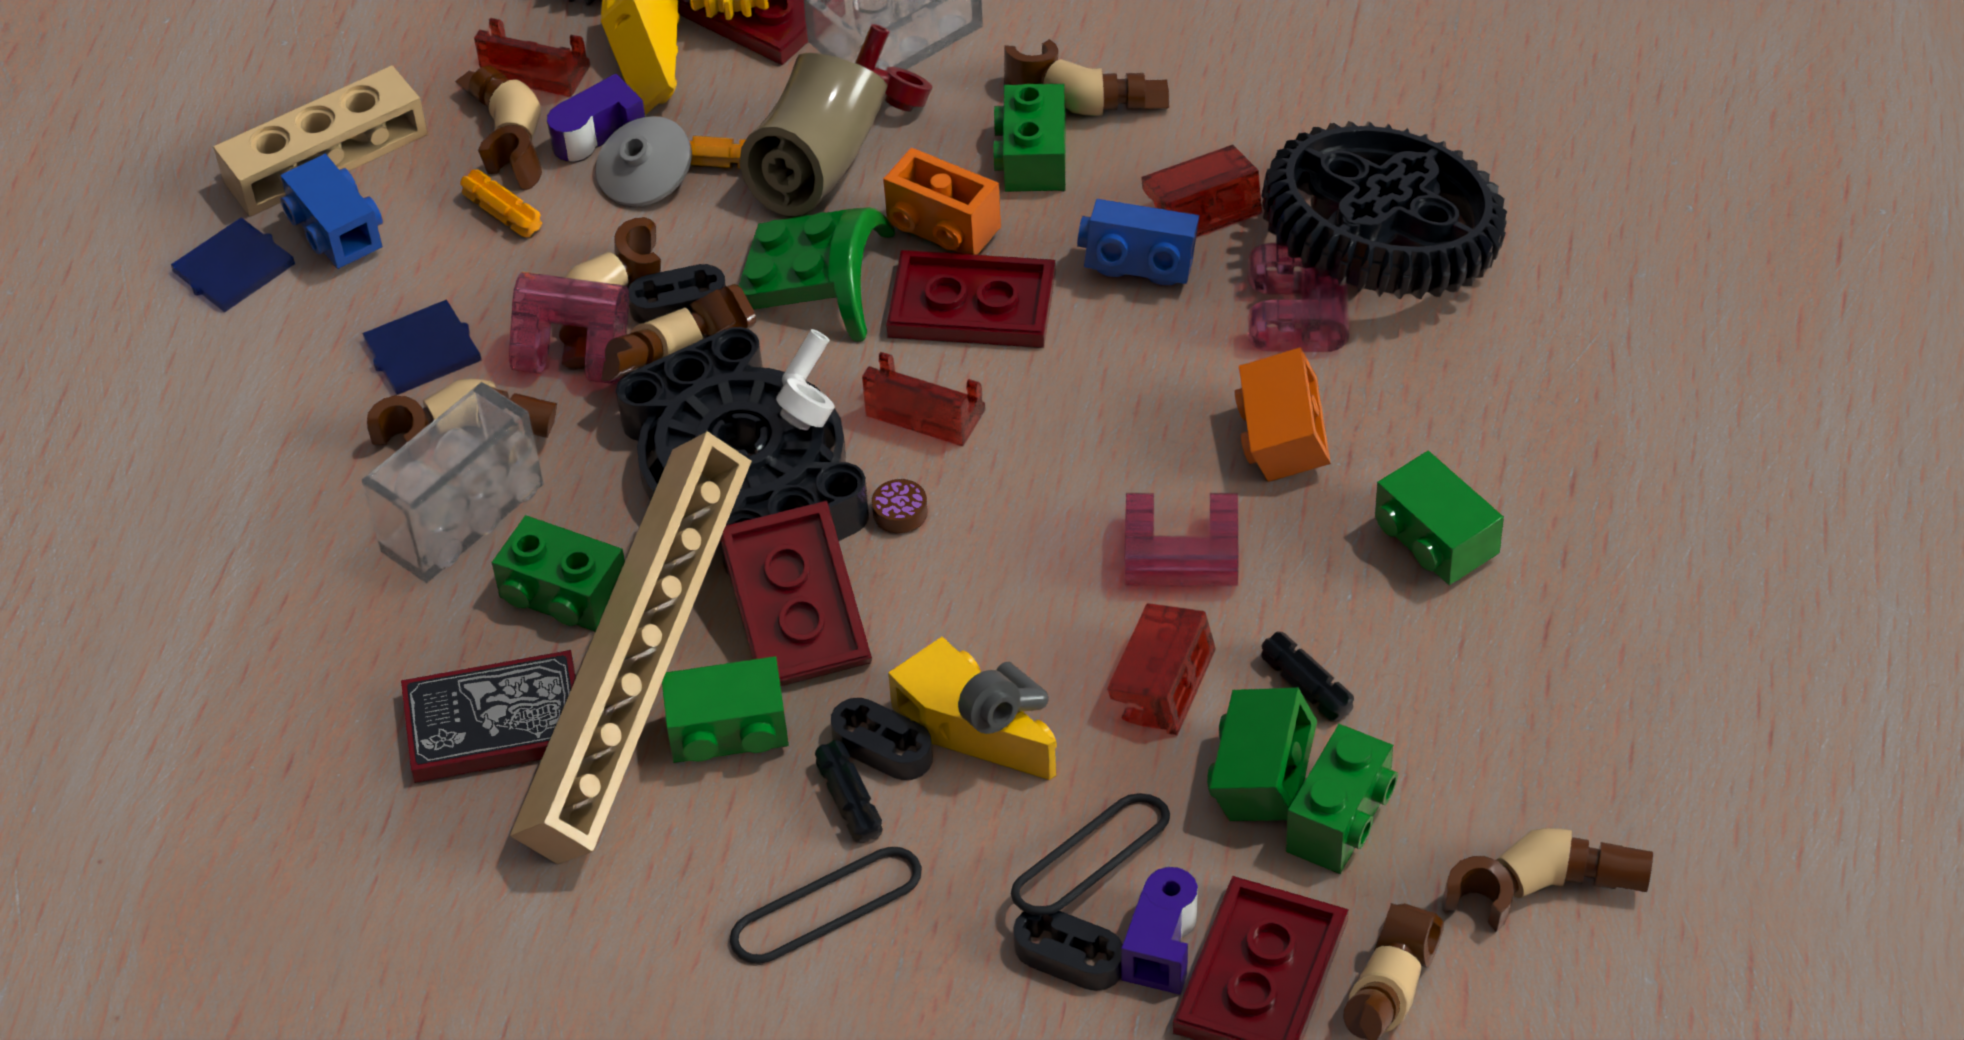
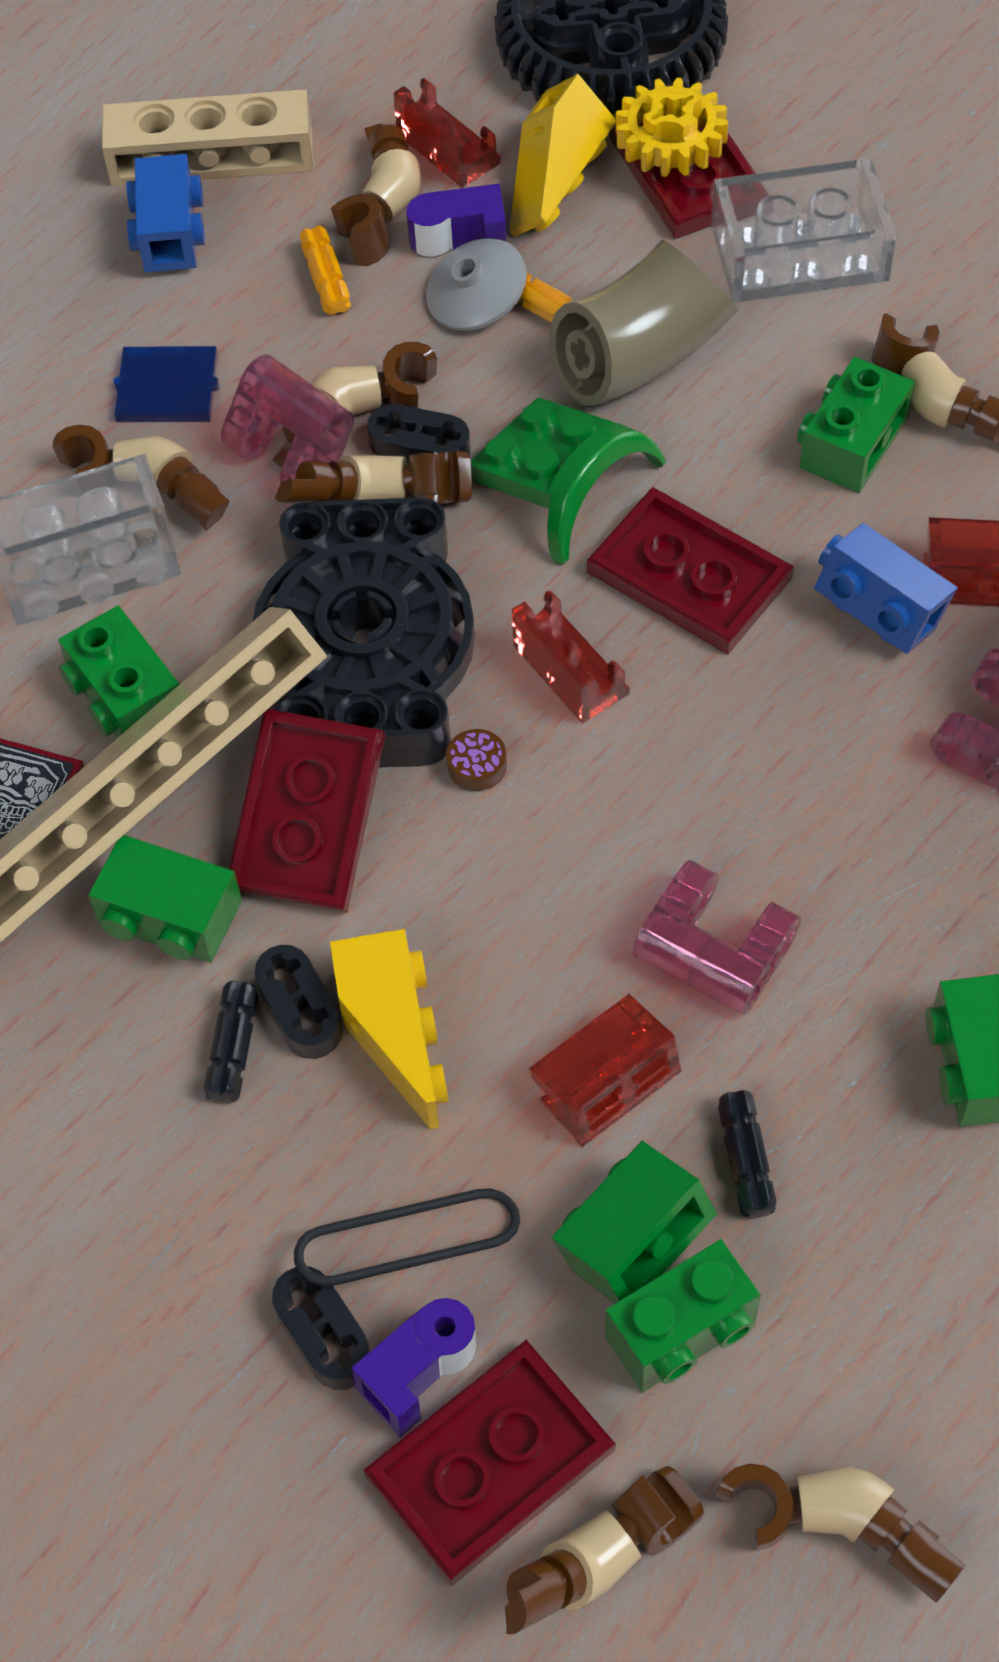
camera: 30 degrees right, 10 degrees up
(233, 264) = (64, 227): clear blue piece -> none
(763, 958) = (138, 1174): black piece -> none
(800, 401) = (428, 610): white plate -> none
(903, 87) = (762, 311): dark red plate -> none
(942, 202) = (714, 456): orange brick -> none
(996, 696) = (392, 1031): dark grey plate -> none
(1282, 415) = (902, 851): orange brick -> none

